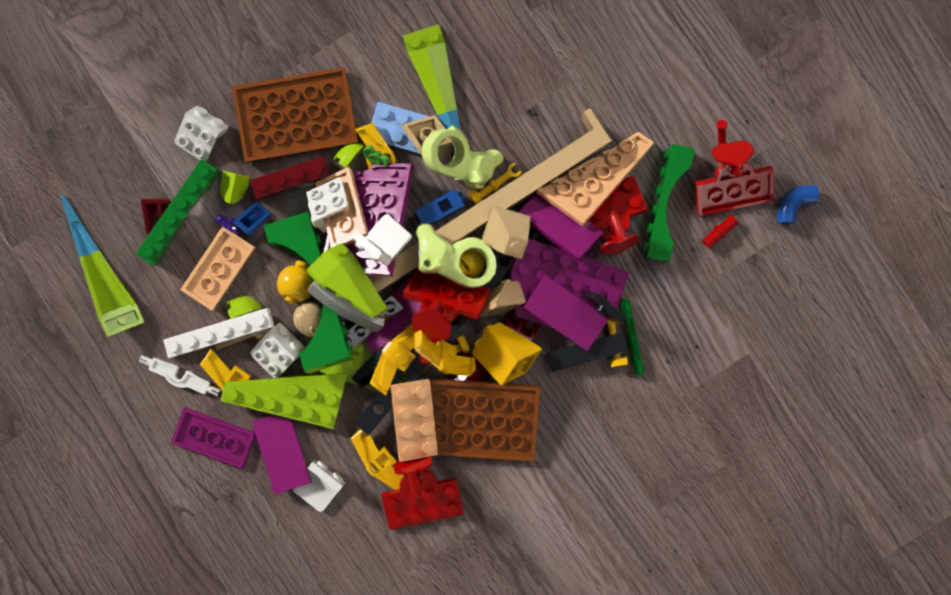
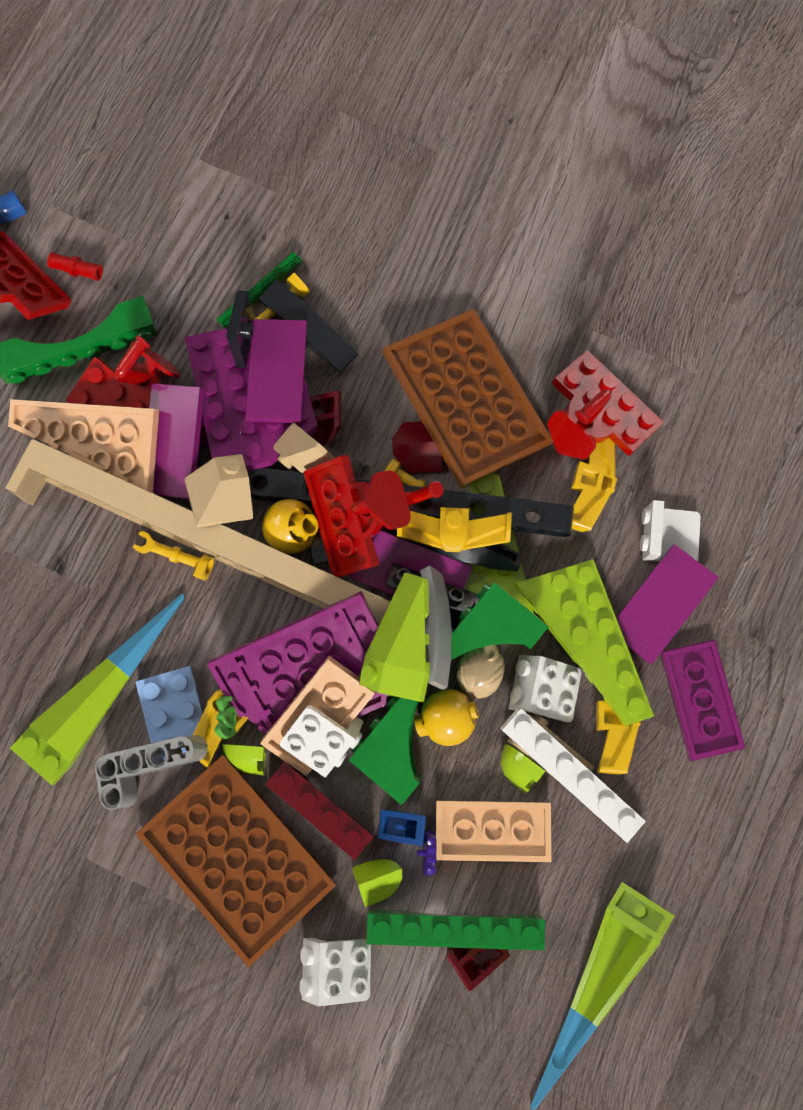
camera: 130 degrees left, 10 degrees down
(170, 372) = (658, 808): white piece -> none
(377, 99) = (151, 760): none -> light grey beam
(383, 240) = (322, 629): white bracket -> none
(414, 420) = (518, 466): light nougat plate -> none
(420, 130) = (160, 664): tan slope -> none
(441, 207) = (243, 599): blue brick -> none
(442, 258) = (299, 541): yellowish green animal -> none
(443, 356) = (419, 473): yellow plate -> none
(466, 165) = (168, 596): yellowish green animal -> none
(505, 353) = (369, 414): yellow slope -> none

